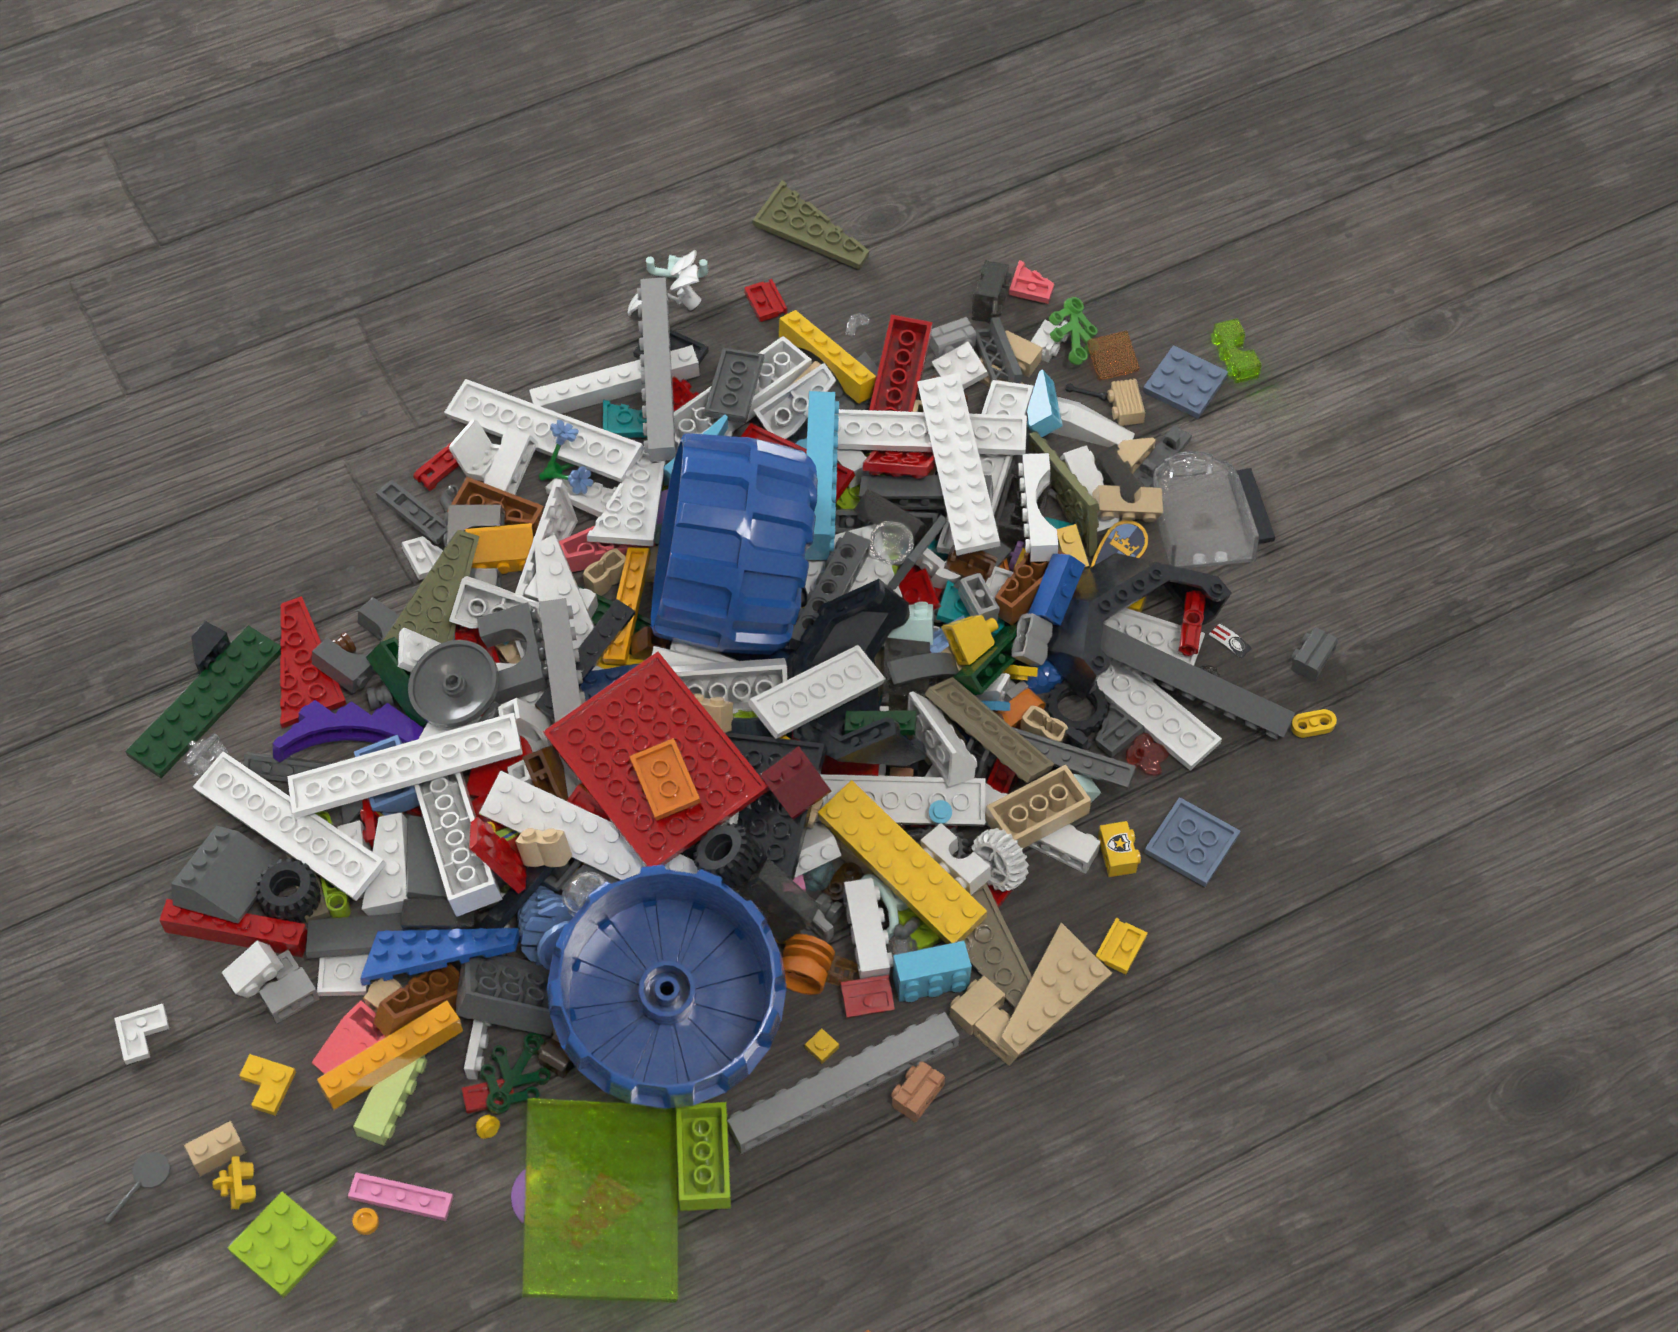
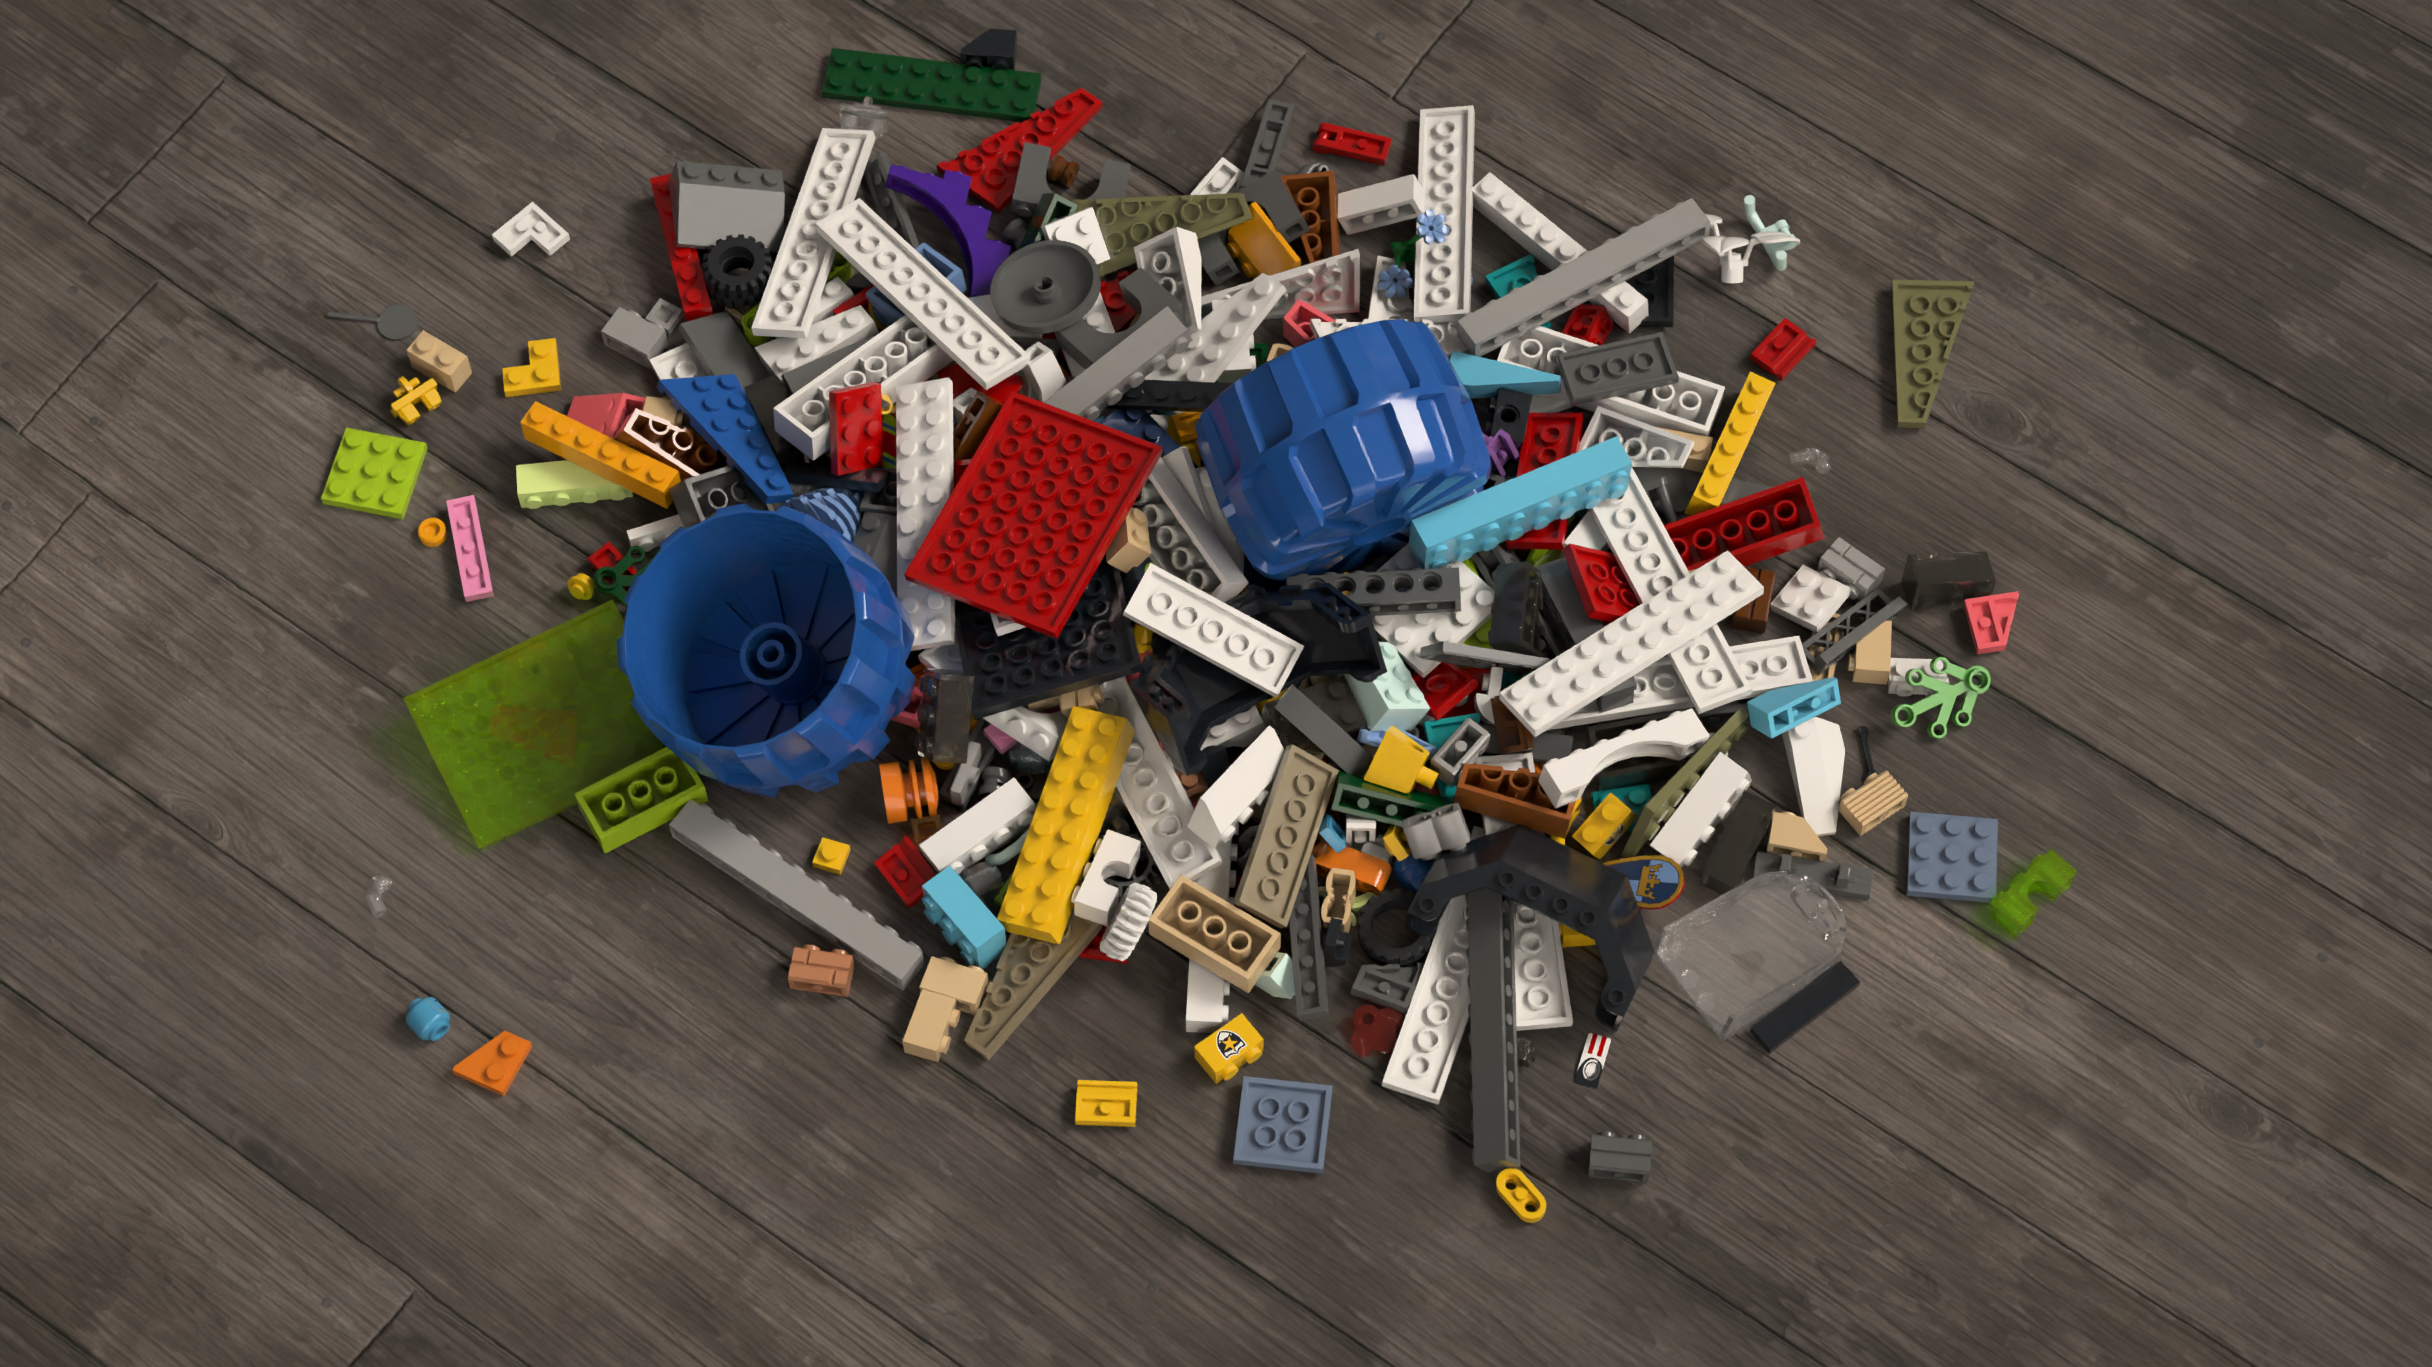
camera: 65 degrees right, 5 degrees up
(252, 969) = (641, 289): white brick -> none
(474, 451) = (1379, 158): white bracket -> none
(543, 847) = (885, 465): tan brick -> none
(578, 888) = (859, 527): clear cylinder -> none
(665, 779) = (1008, 530): orange plate -> none
(728, 854) = (958, 637): black tyre -> none
(795, 782) = (1075, 657): dark red slope -> none
(859, 719) = (1218, 716): dark green plate -> none
(891, 543) = (1469, 620): clear cylinder -> none
(909, 928) = (998, 869): dark grey arm -> none
(940, 811) = (1153, 833): medium azure plate -> none
(1057, 588) = (1511, 823): blue brick -> none
(1058, 985) = (1022, 1056): tan wing -> none
(1113, 355) = (1936, 757): clear orange tile -> none
(1147, 504) = (1685, 834): tan arch -> none
(1192, 623) = (1551, 1000): red piece -> none

